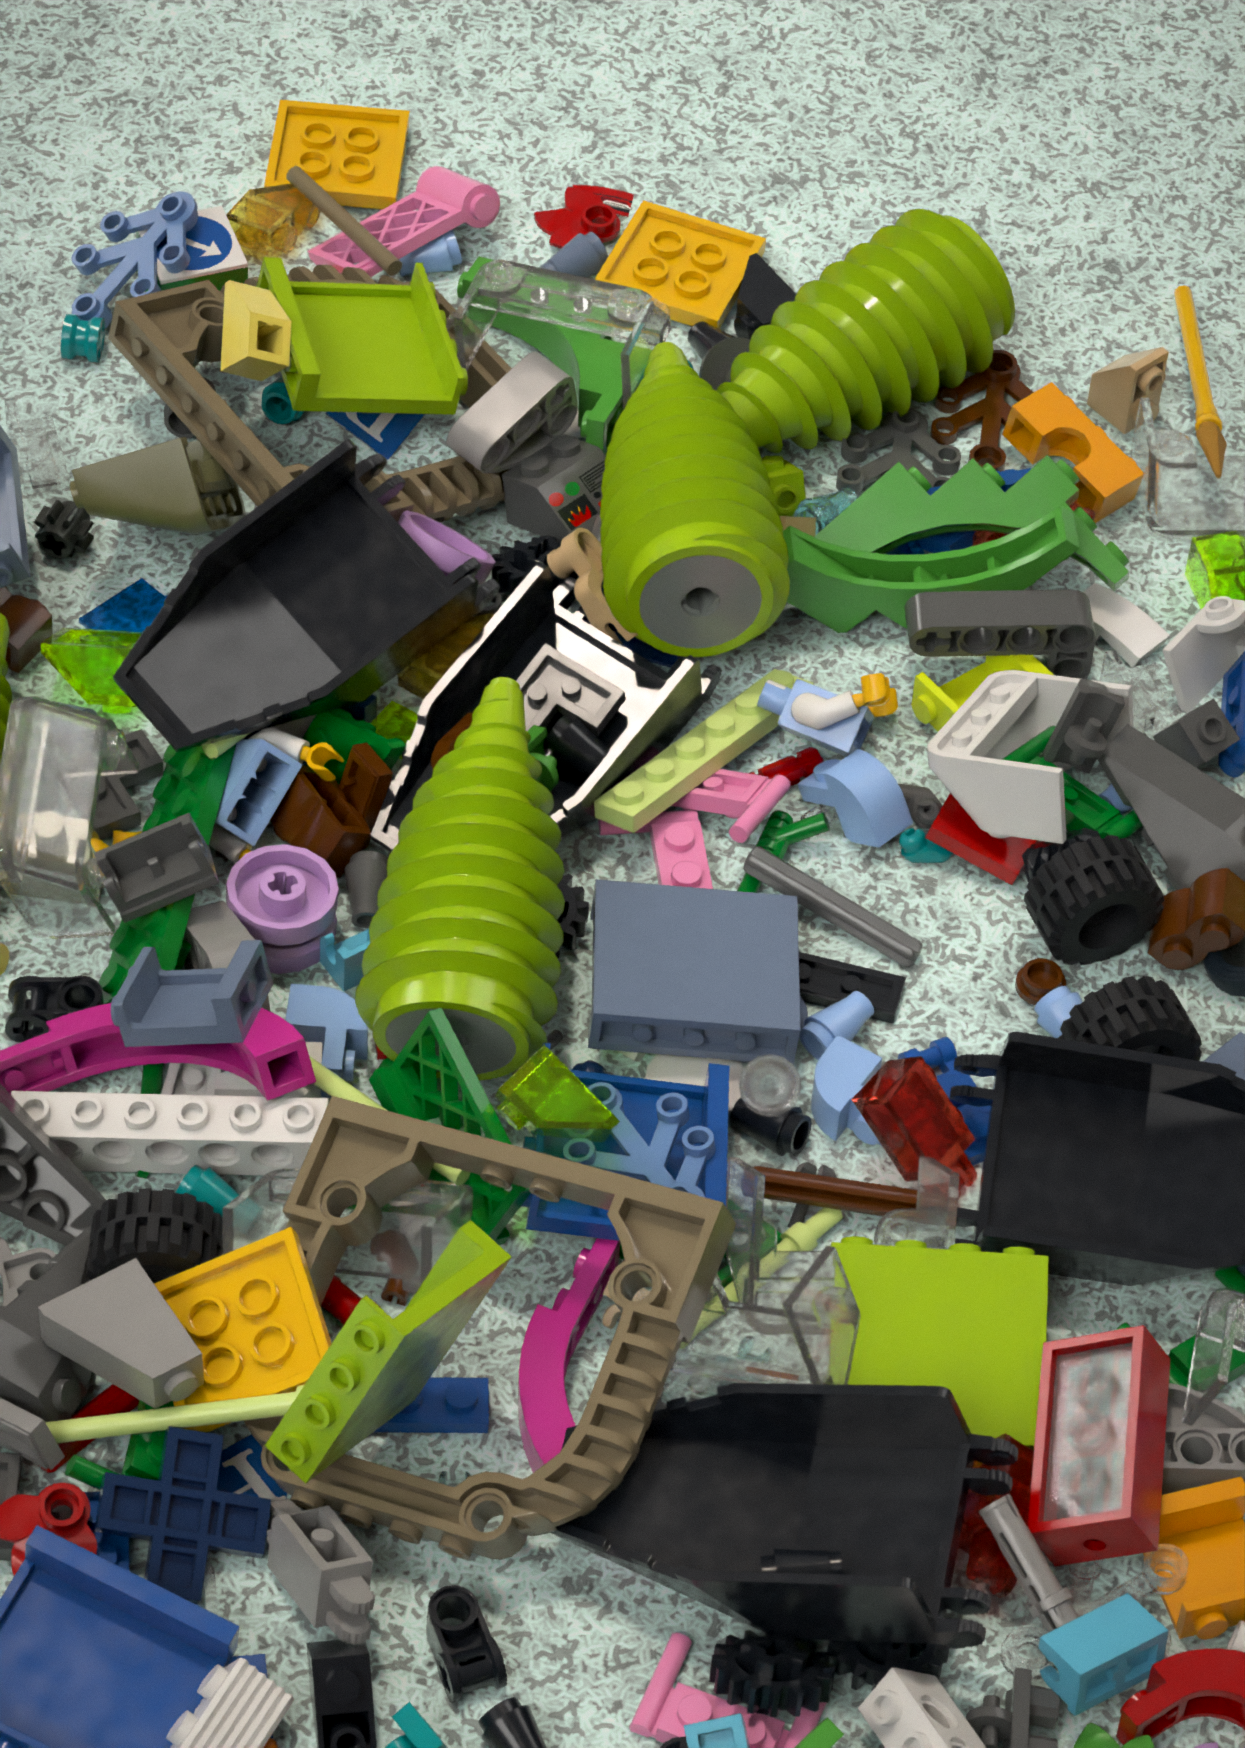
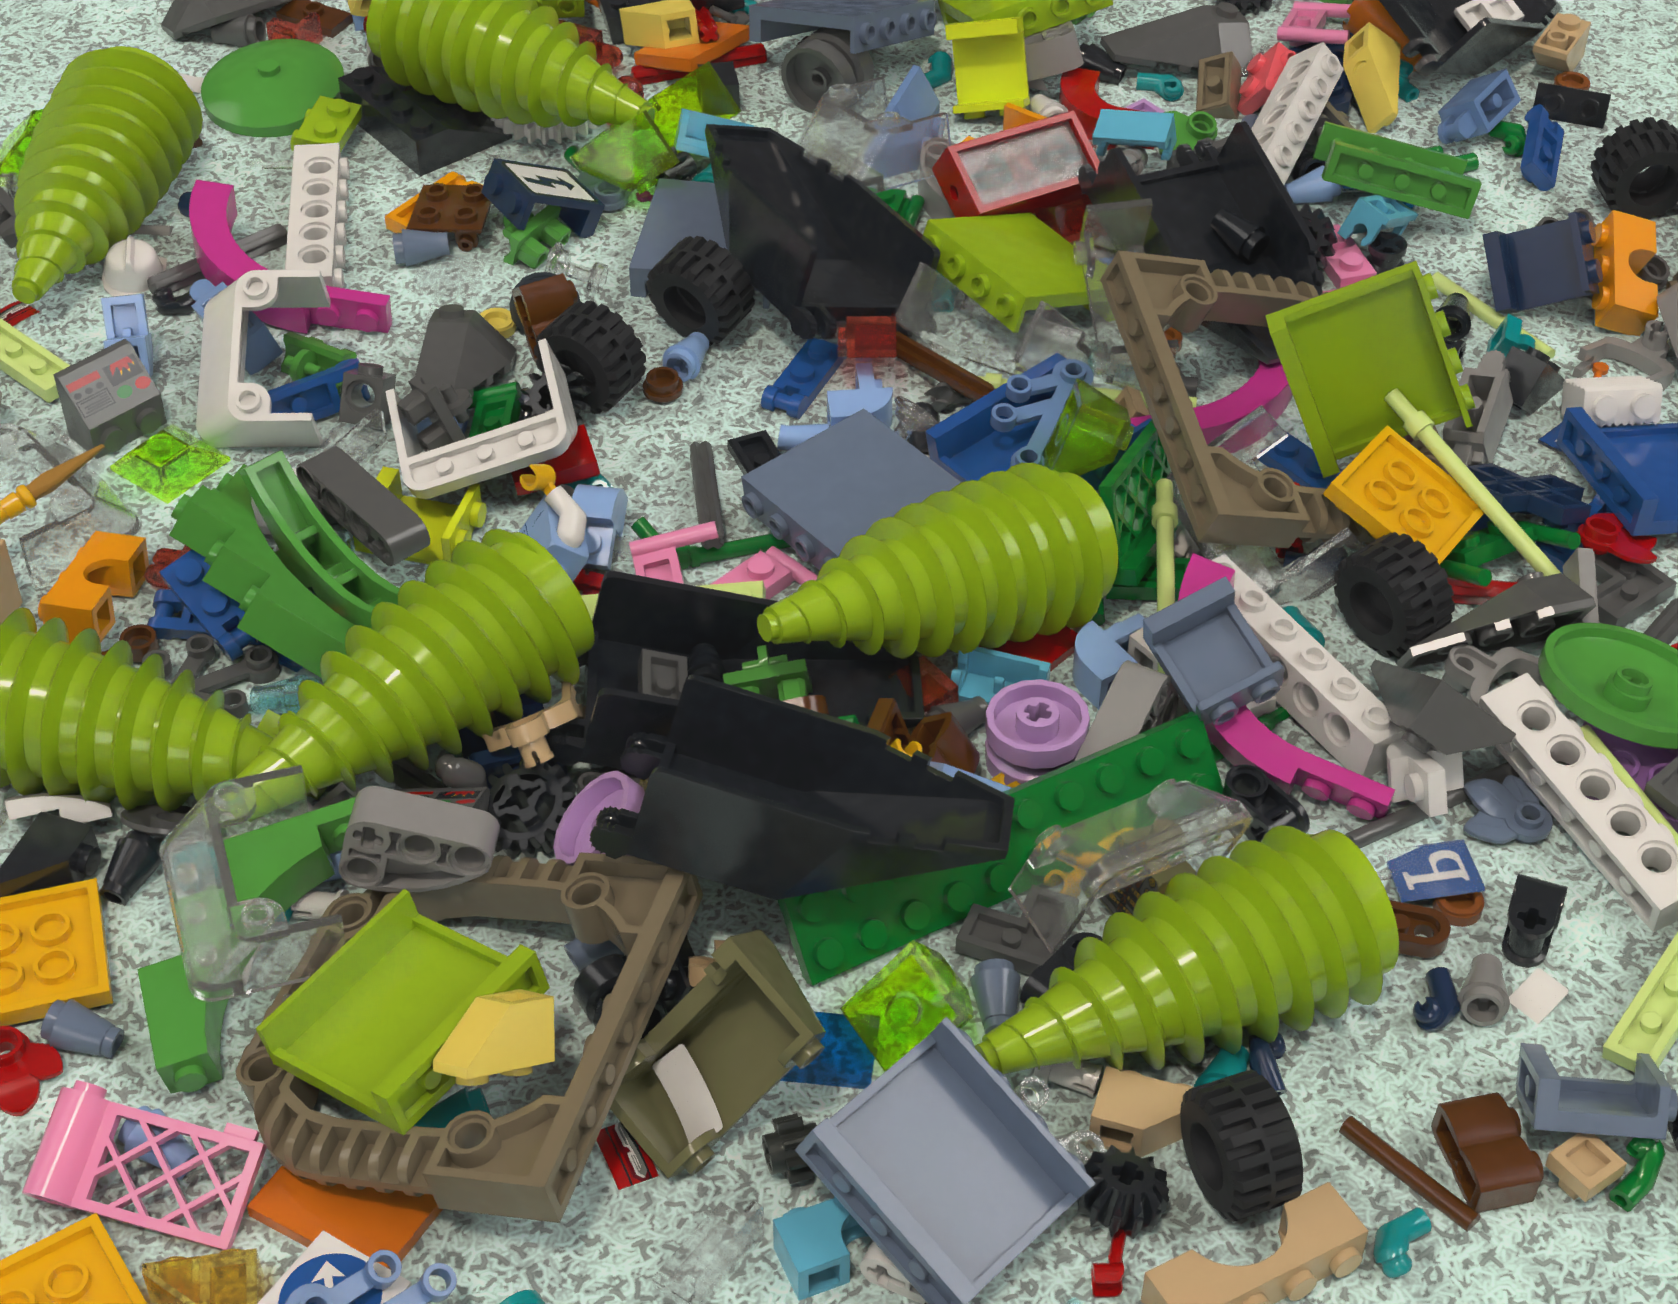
camera: 125 degrees left, 5 degrees down
(125, 1335) = (1488, 534): light grey slope -> none
(157, 867) = (1125, 749): dark grey hinge -> none
(344, 221) = (198, 1188): dark tan bar -> none

